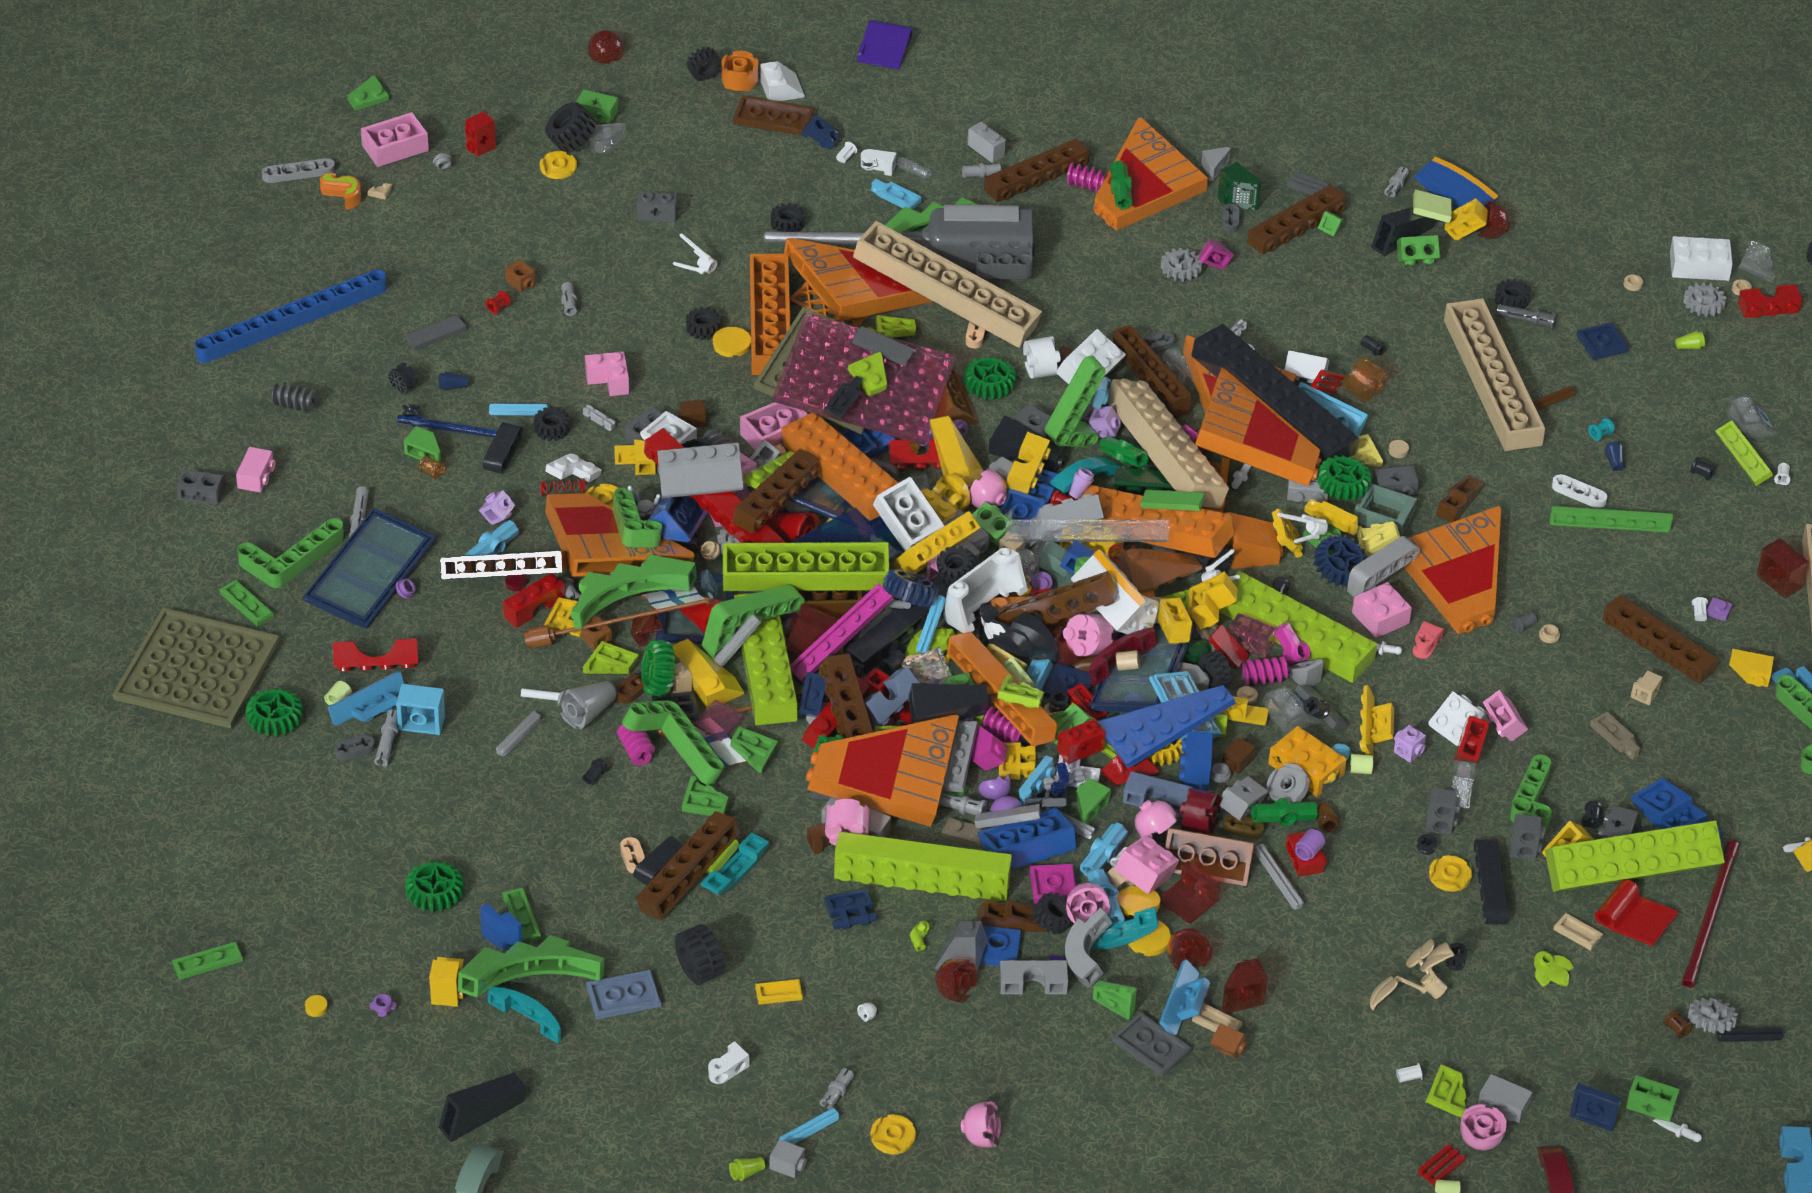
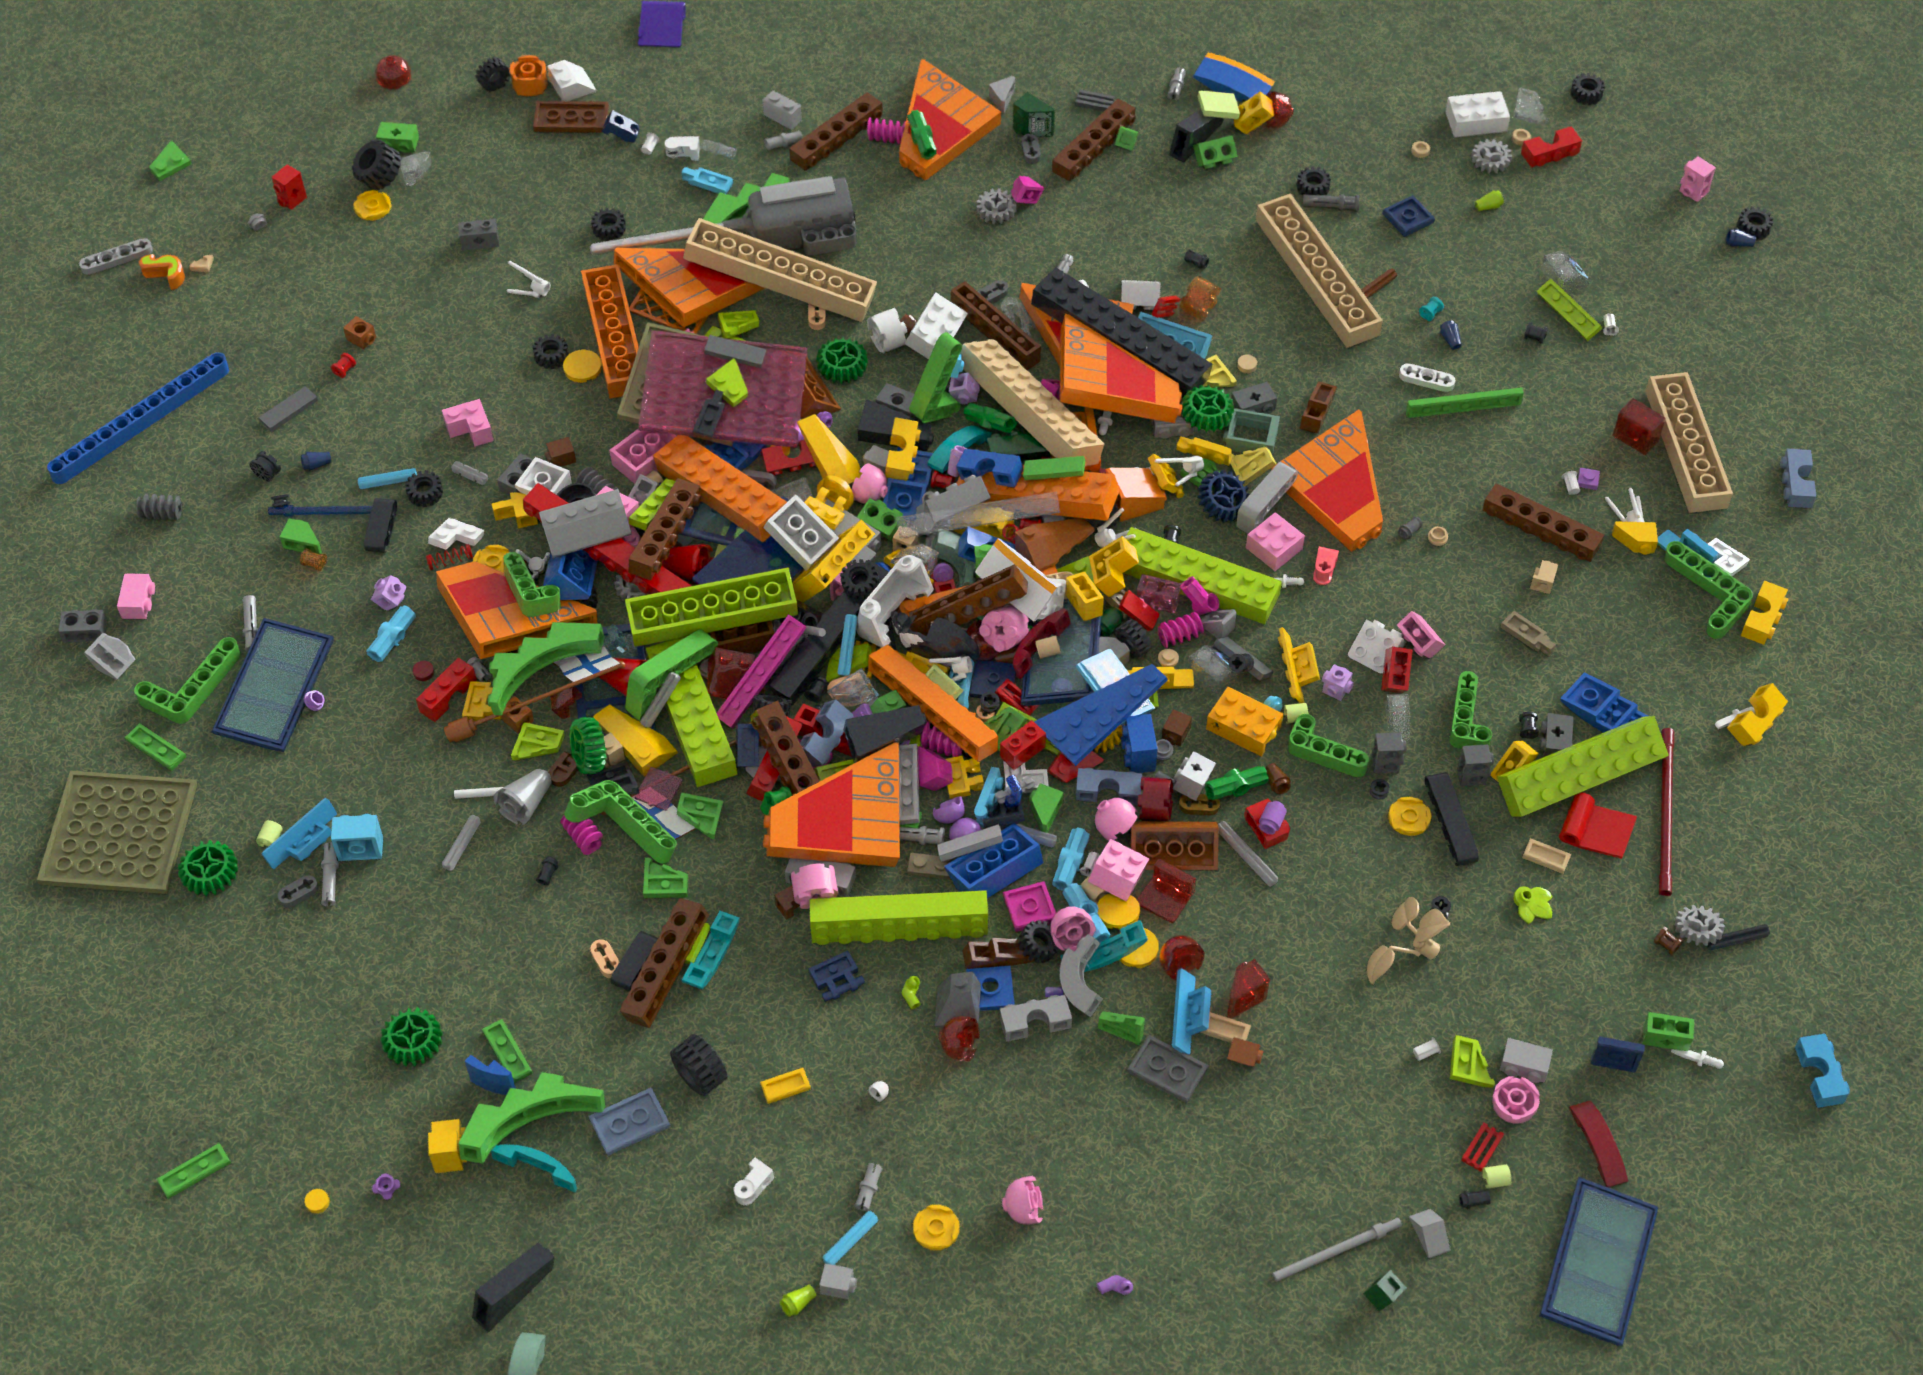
camera: 10 degrees left, 10 degrees up
(219, 517) = (110, 655): none -> light grey slope
(348, 655) = (271, 788): red arch -> none
(394, 139) = (205, 207): bright pink brick -> none
(504, 564) = (409, 658): brick -> none
(568, 299) = (412, 348): light grey pin -> none
(710, 550) = (610, 600): tan plate -> none
(910, 587) = (821, 613): dark blue gear -> none
(1022, 694) = (954, 709): lime wing -> none
(1036, 662) = (959, 665): none -> white plant
(1123, 492) = (1005, 467): none -> blue arch
(1298, 778) = (1227, 742): light grey plate -> none
(1380, 802) = (1328, 749): none -> bright green beam
(1753, 647) = (1632, 516): none -> white plant

